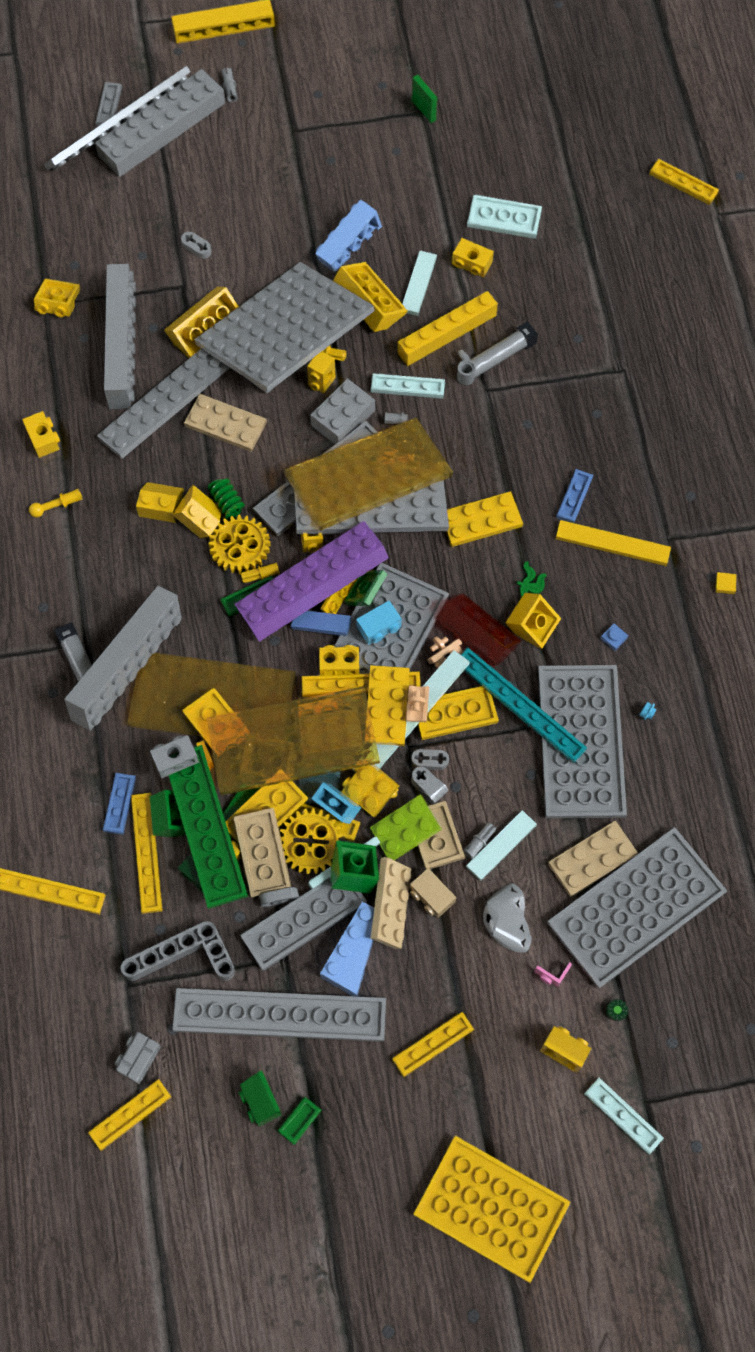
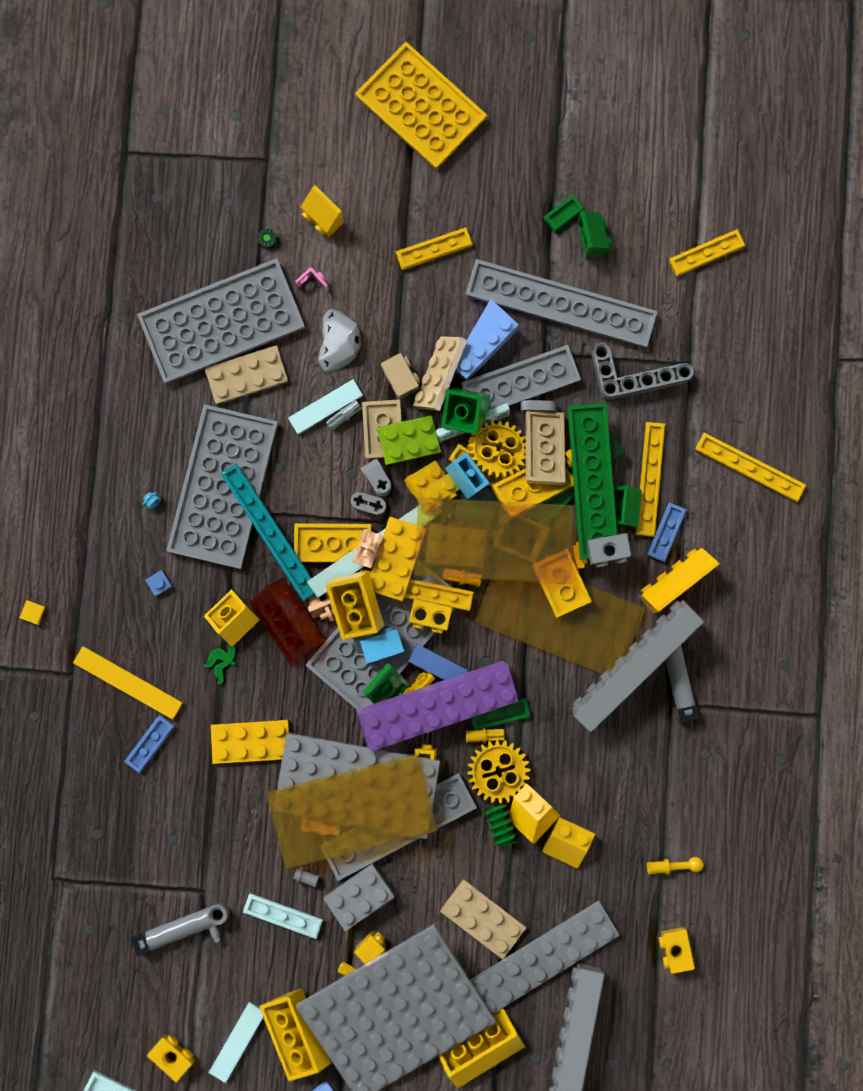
camera: 160 degrees left, 15 degrees up
(97, 753) = (678, 580): none -> yellow slope
(137, 1057) = (691, 295): light grey brick -> none
(415, 647) = (354, 605): none -> yellow brick
(447, 328) = (222, 972): yellow brick -> none
(624, 1116) = (289, 152): light aqua tile -> none

